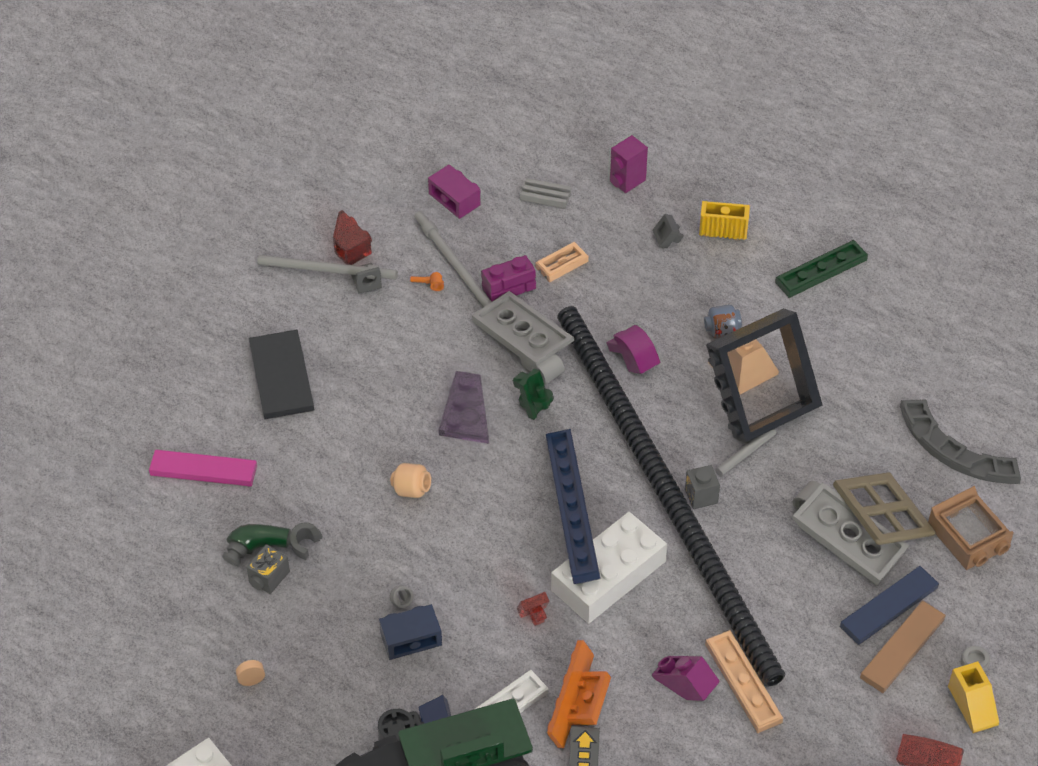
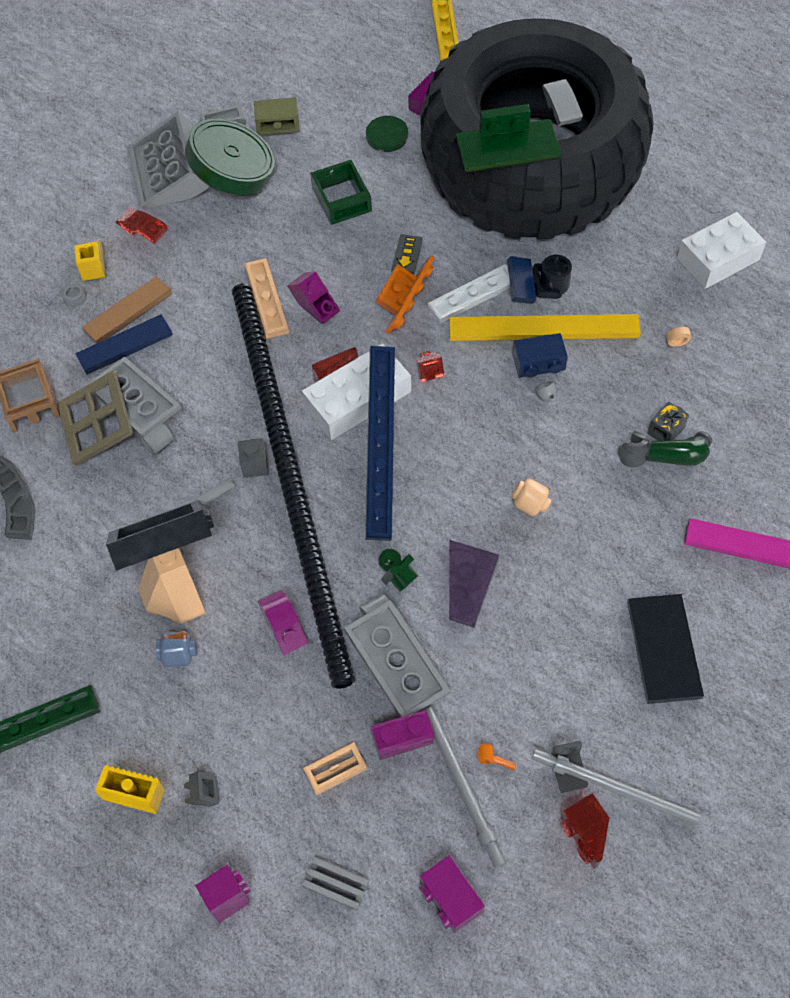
camera: 170 degrees left, 10 degrees up
(406, 675) = (523, 327): none -> yellow tile
(643, 591) = (329, 365): none -> clear red slope

